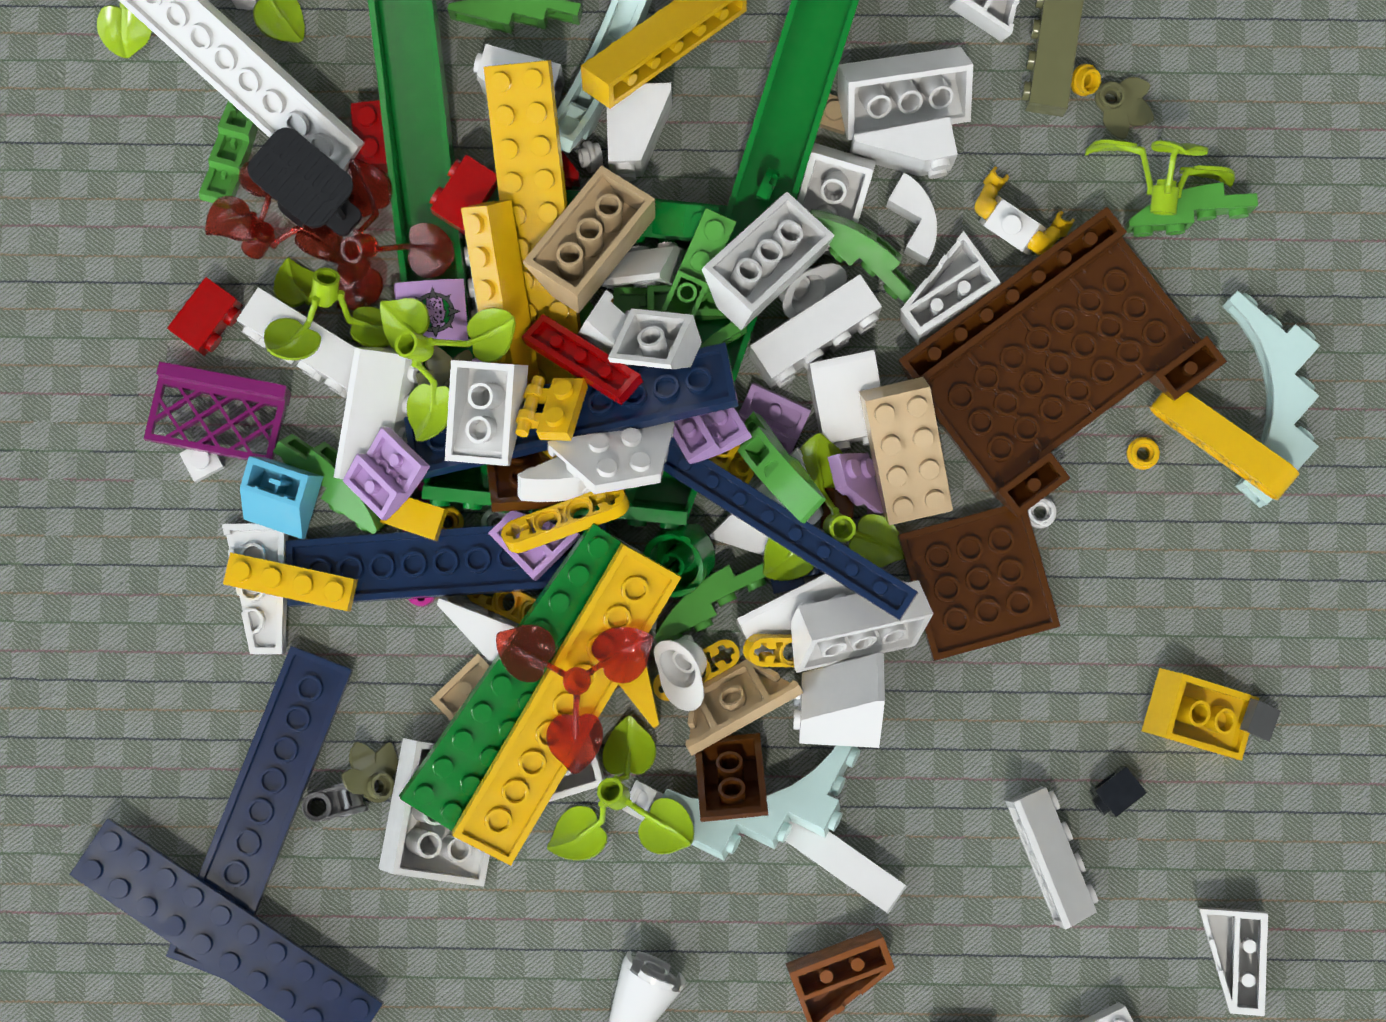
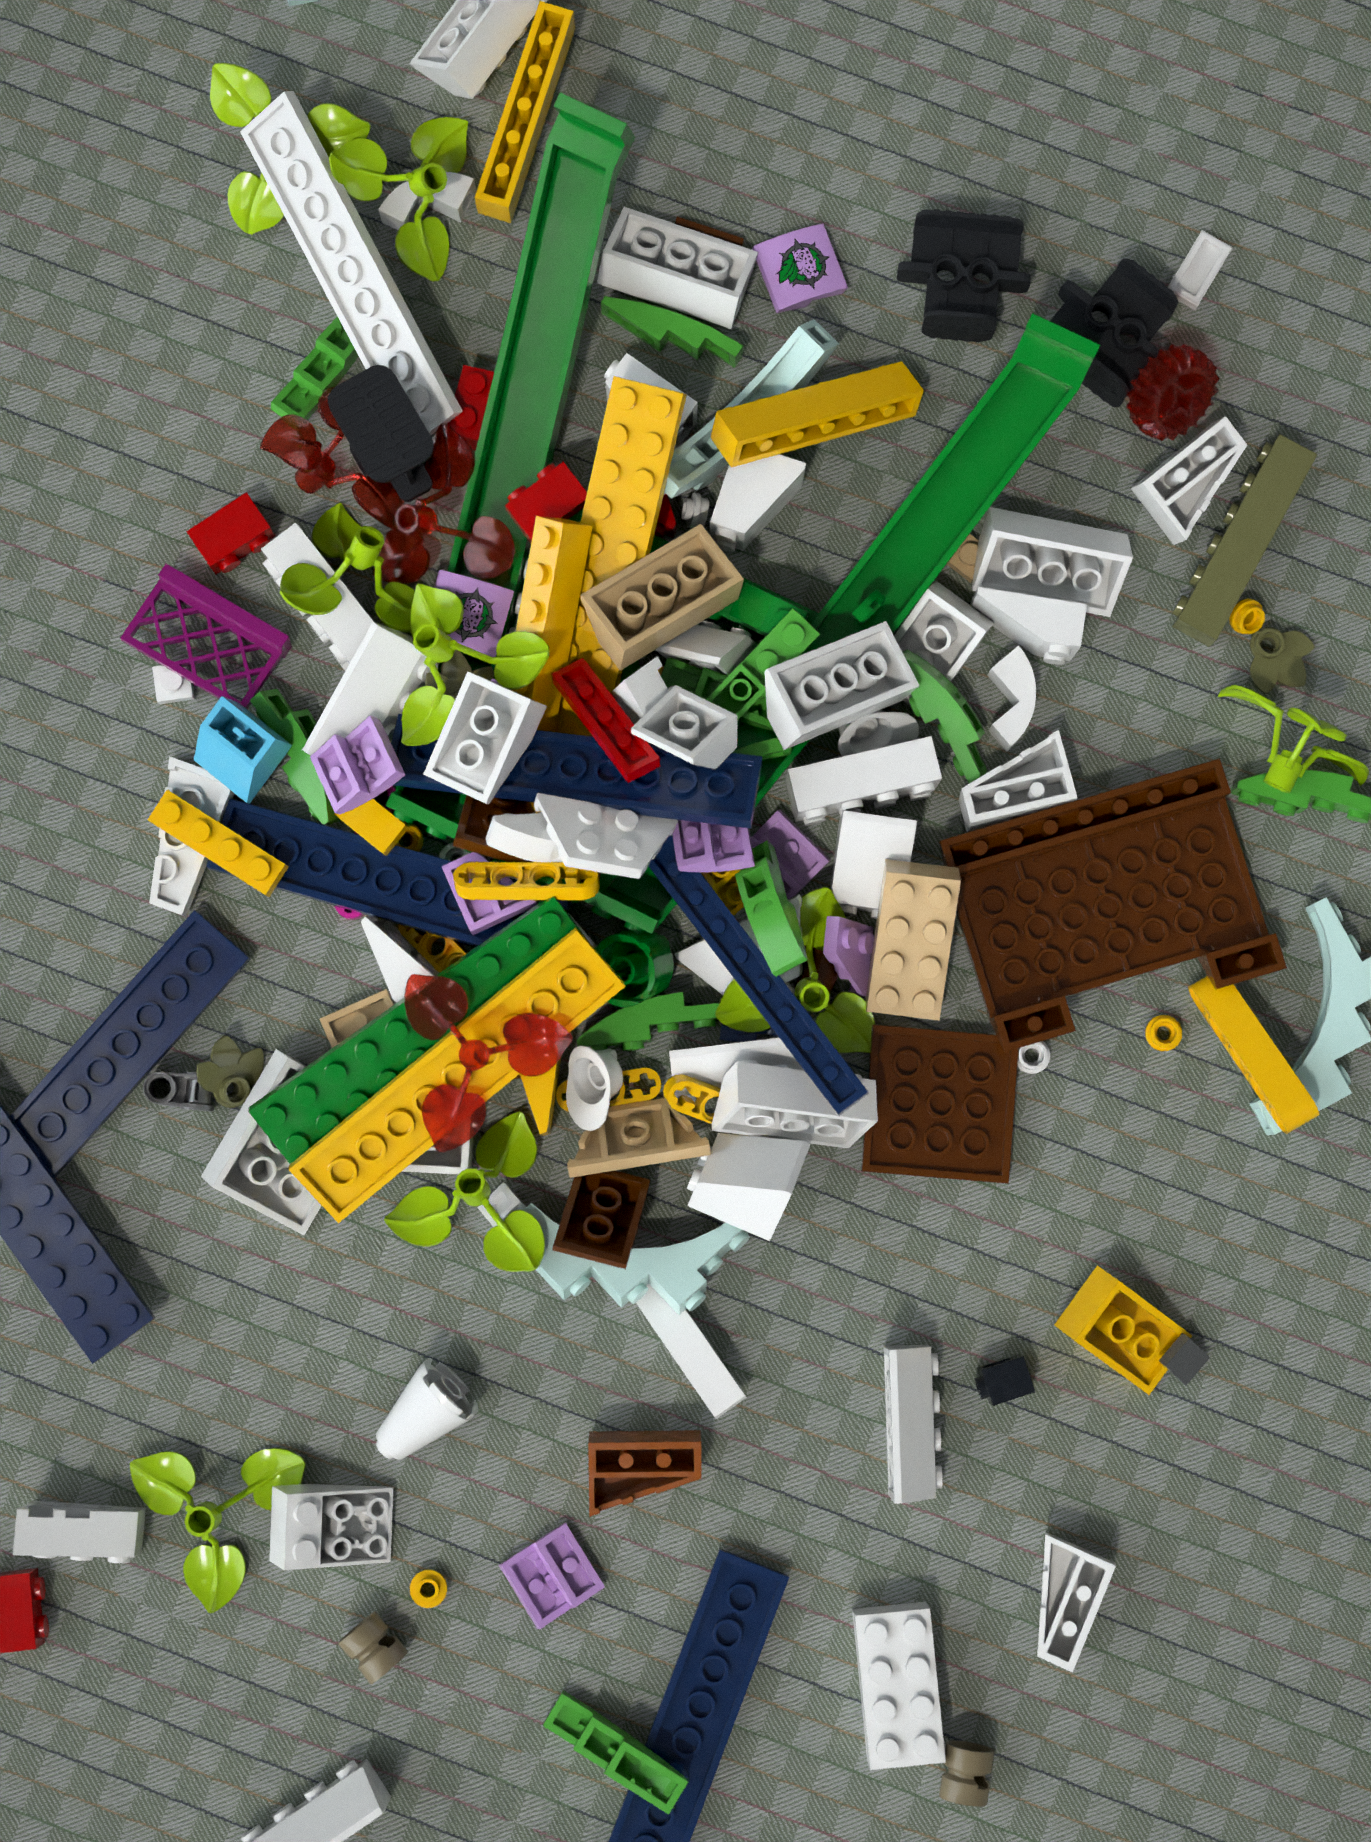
camera: 15 degrees right, 0 degrees up
(560, 412) = (564, 764): yellow plate -> none
(1014, 224) = (1114, 741): torso -> none

